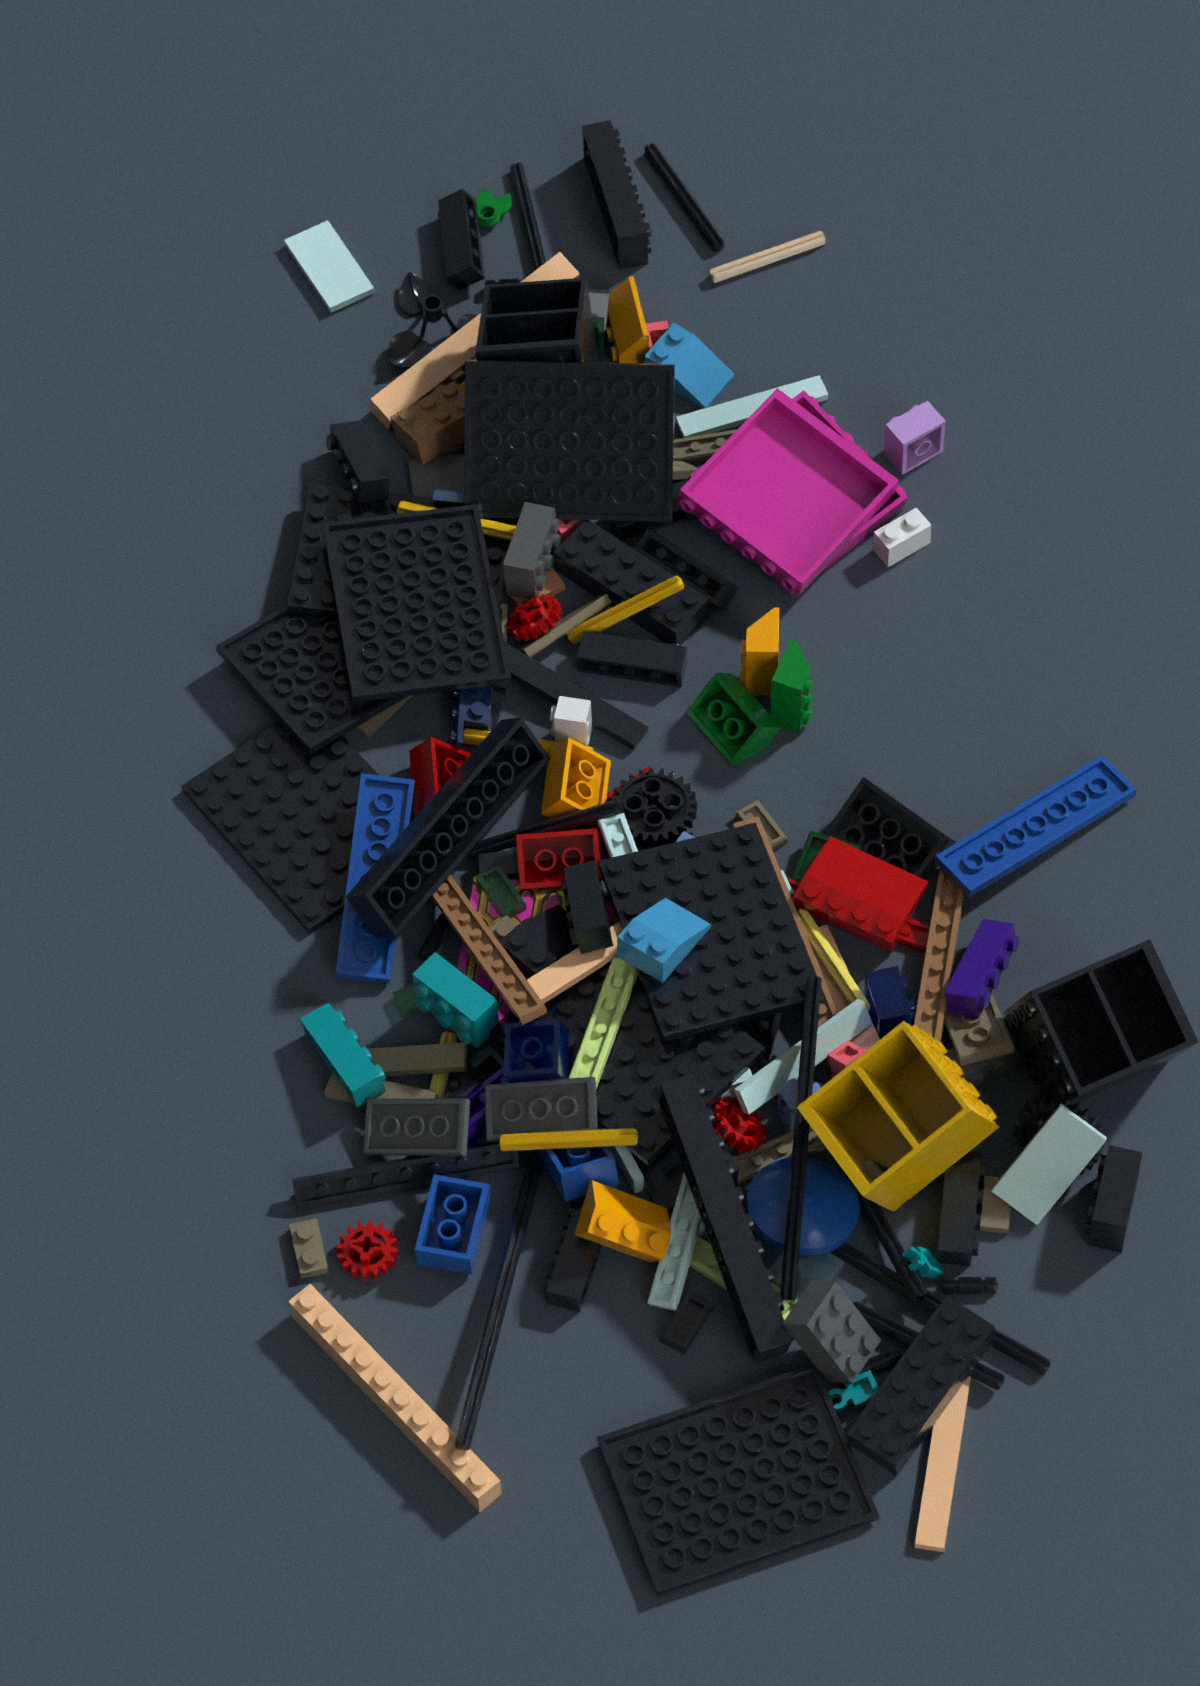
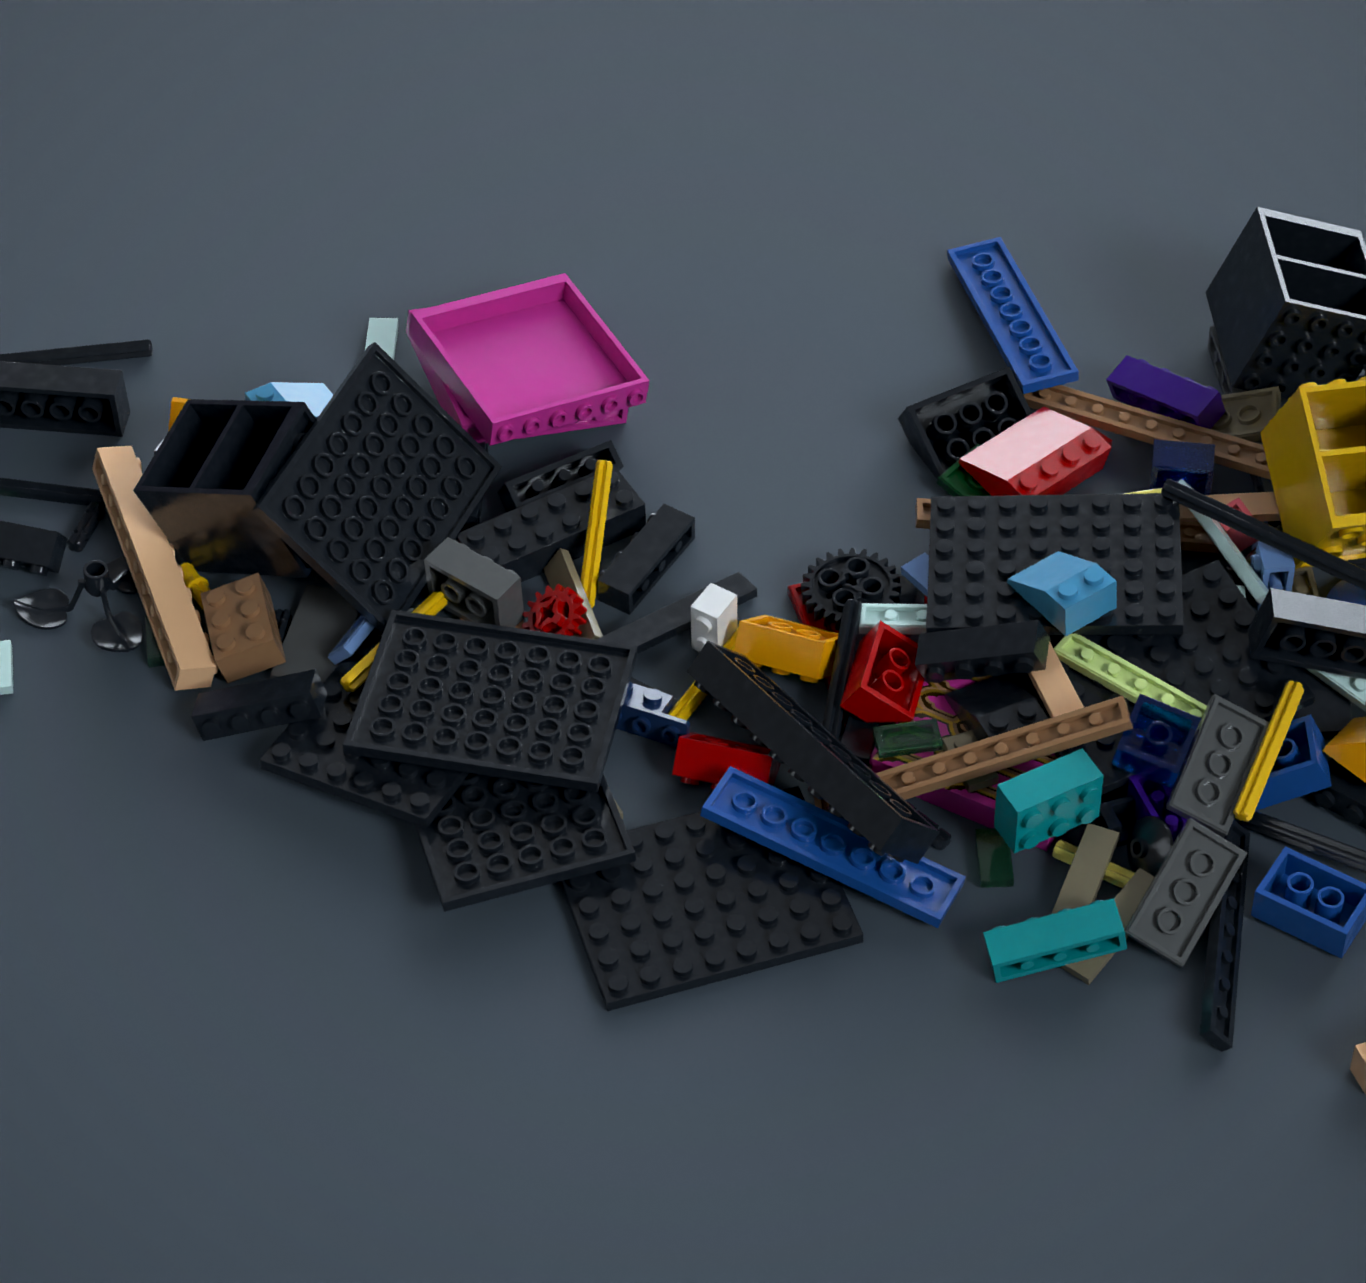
camera: 70 degrees left, 10 degrees down
(308, 1248) = (1286, 1052): dark tan plate -> none
(361, 1239) = (1329, 992): red gear -> none
(732, 718) = (765, 502): green slope -> none
(760, 654) = (717, 438): light orange slope -> none
(767, 256) = (189, 317): tan axle -> none
(774, 833) = (897, 524): dark tan tile -> none
(792, 690) = (768, 429): green slope -> none
(902, 537) = (613, 308): white brick -> none
(914, 437) = (500, 256): lavender brick -> none

